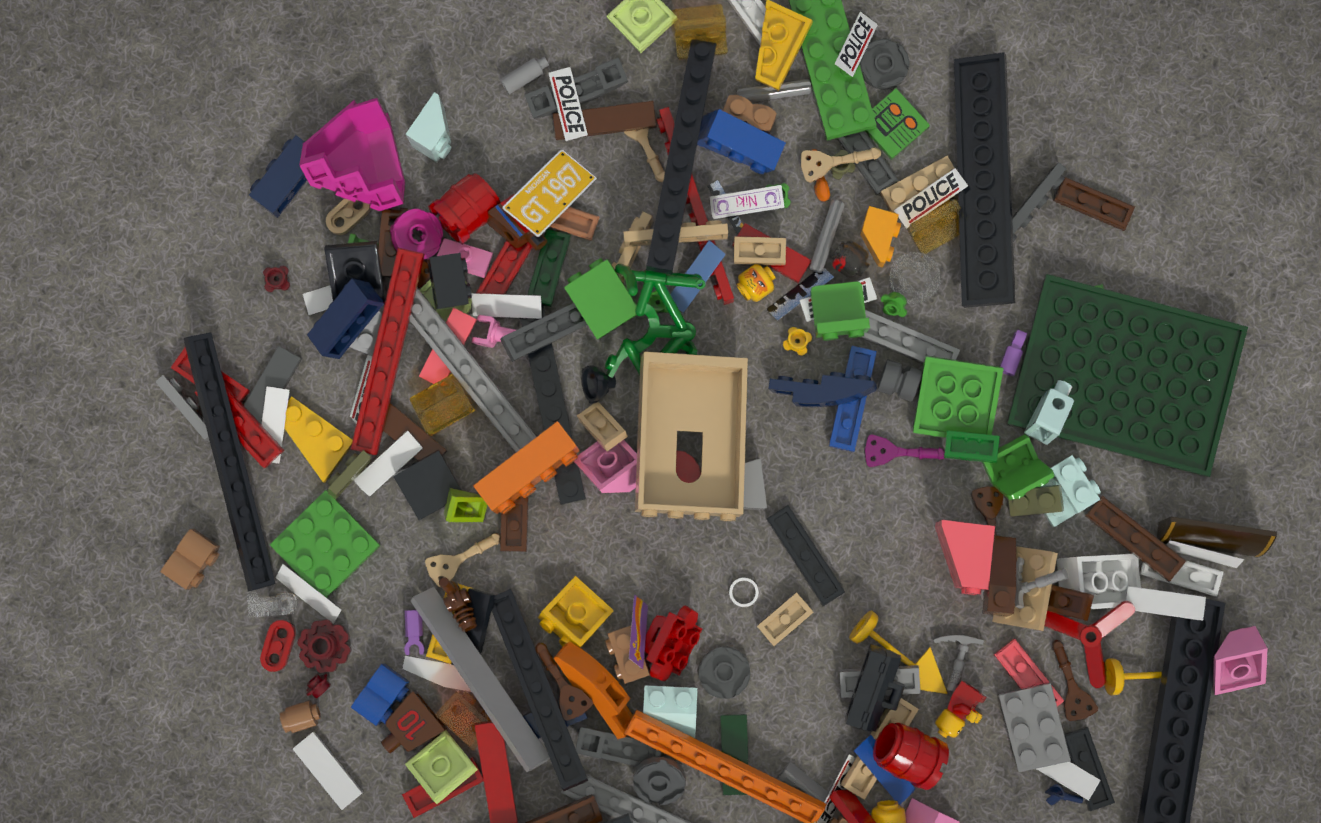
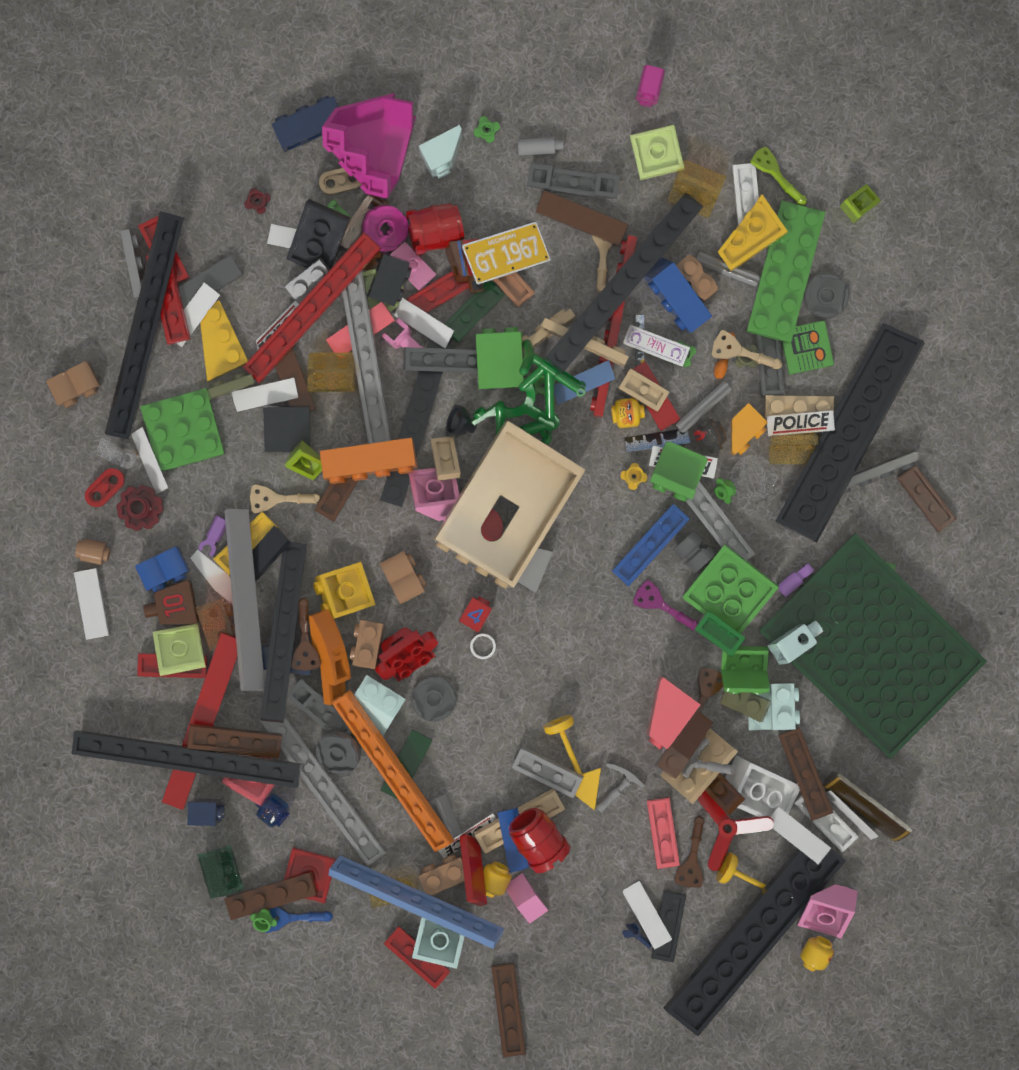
camera: 25 degrees right, 5 degrees up
(318, 685) = (118, 535): dark red plate -> none
(345, 318) = (293, 264): dark blue brick -> none
(457, 601) = (260, 531): reddish brown piece -> none
(468, 92) = (485, 123): none -> bright green plate
(568, 104) = (560, 189): white sticker -> none
(625, 567) = (402, 576): none -> medium nougat brick
(638, 631) = (384, 631): medium lavender sticker -> none
(719, 563) = (476, 613): none -> red brick
(785, 619) = (502, 684): tan plate -> none
(805, 555) = (546, 644): black tile -> none
(832, 391) = (637, 530): dark blue slope -> none
(856, 44) = (812, 268): white sticker -> none
(869, 693) = (544, 767): black piece -> none
(960, 707) = (597, 826): piece -> none
(1034, 727) = (645, 872): light grey plate -> none
(1252, 712) = (817, 953): none -> yellow head

